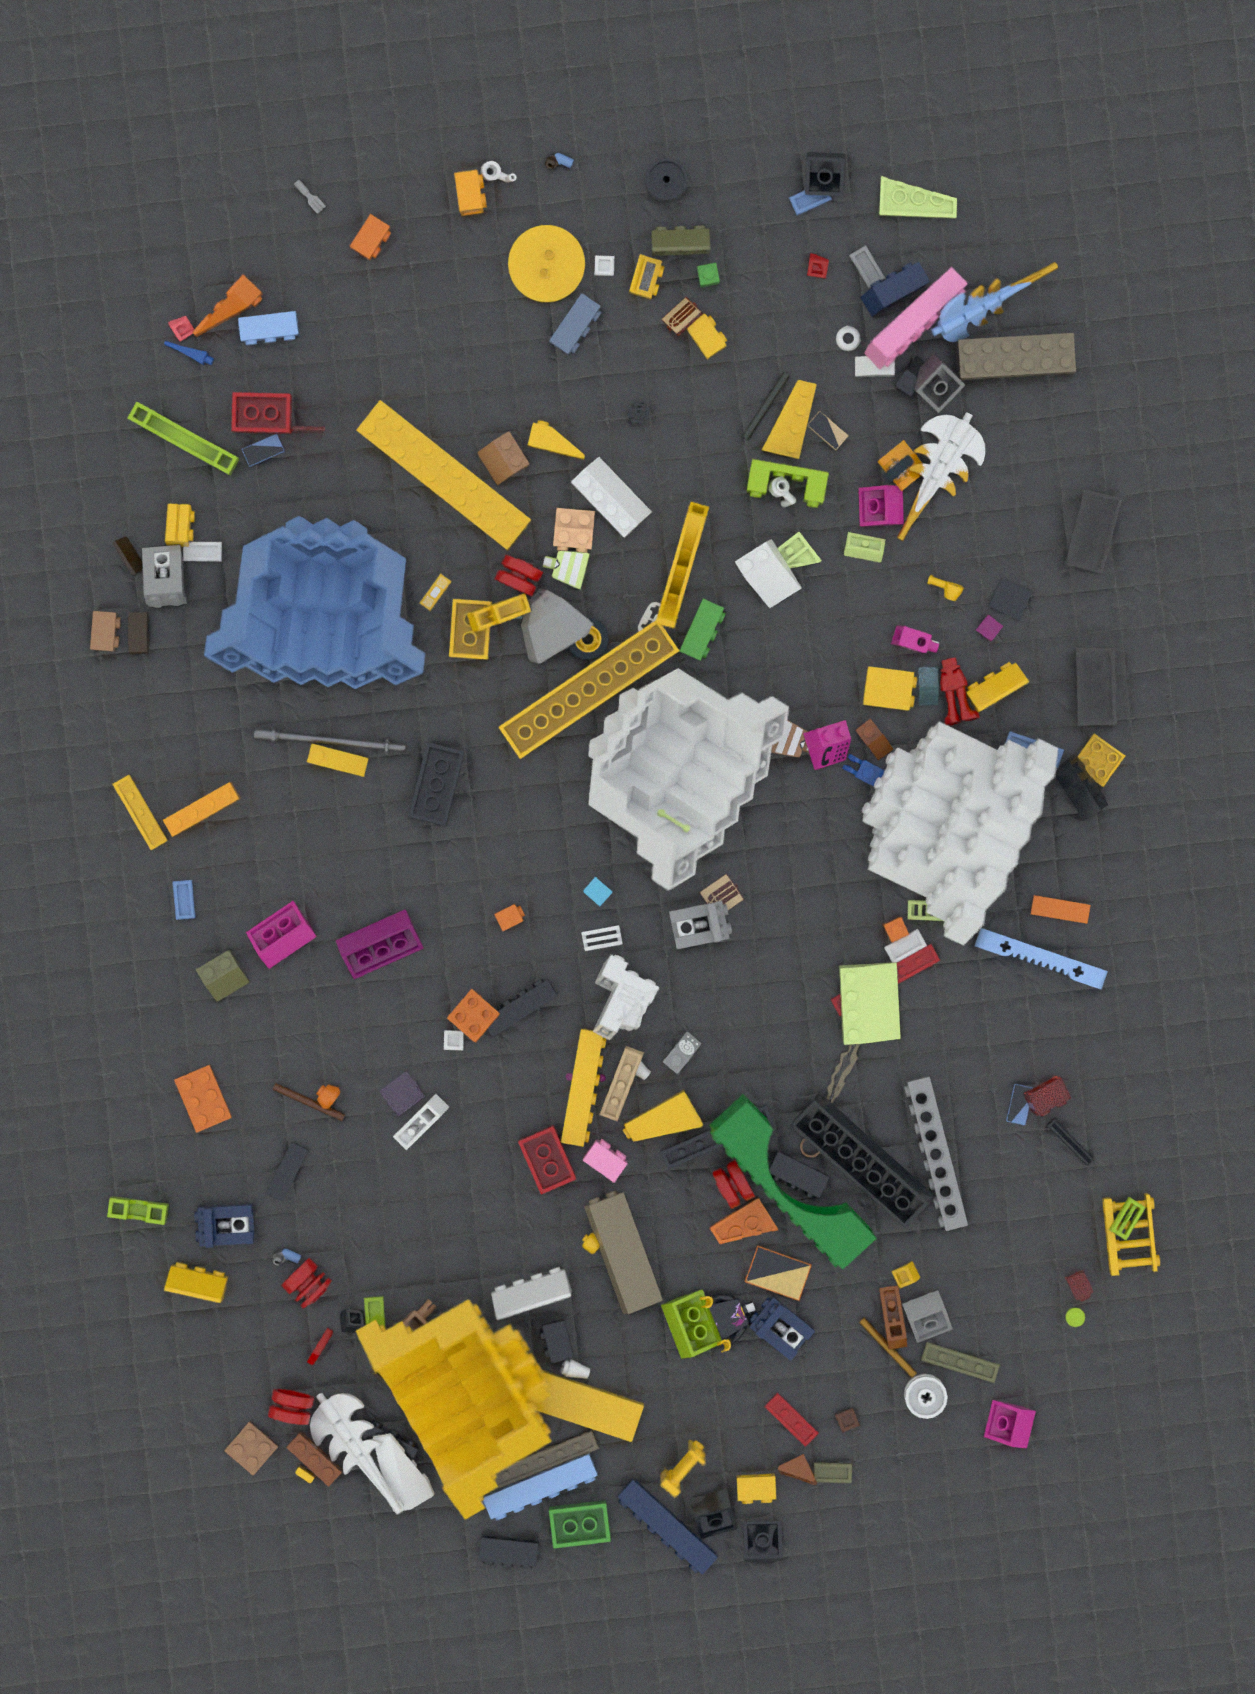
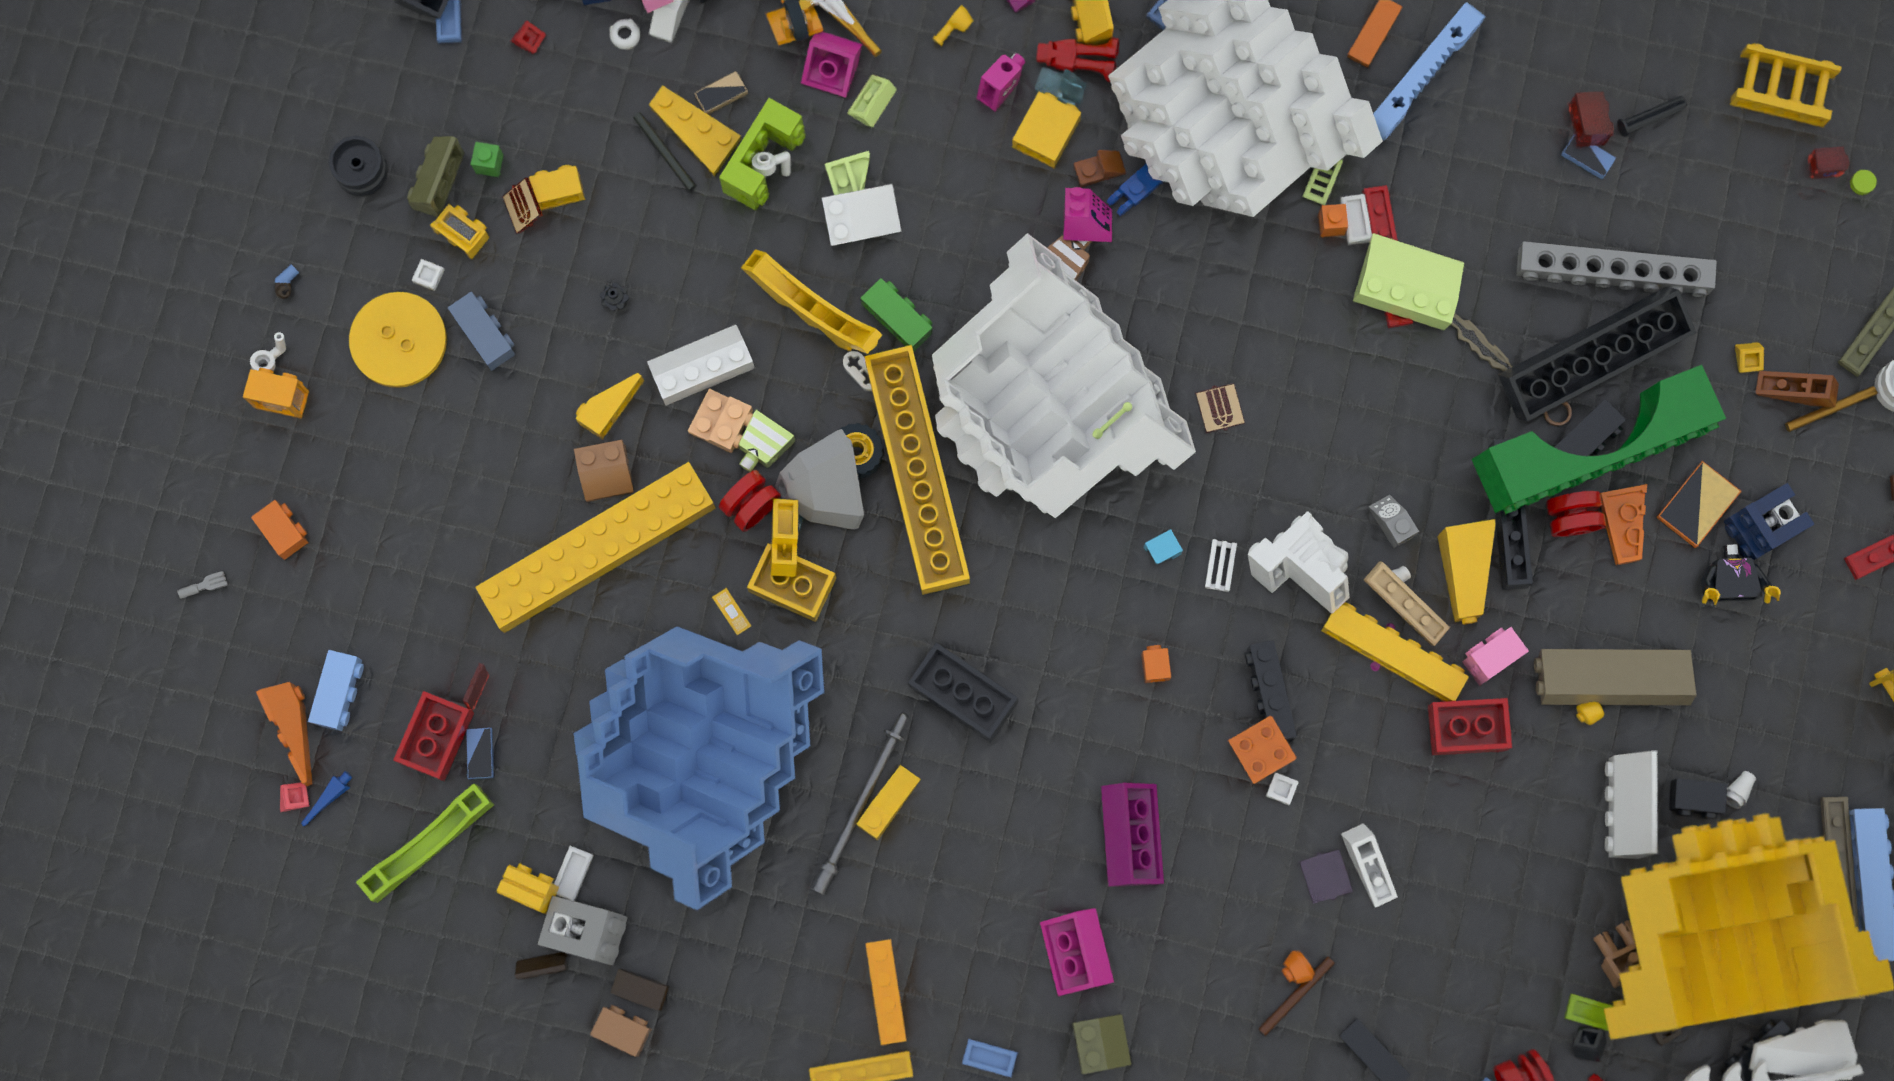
camera: 70 degrees left, 10 degrees down
(591, 1407) = (1799, 778): yellow brick -> none
(691, 1324) = (1730, 628): lime slope -> none
(716, 915) = (1247, 422): light grey brick -> none
(927, 1316) = (1808, 347): light grey slope -> none
(1121, 1214) = (1765, 81): lime tile -> none

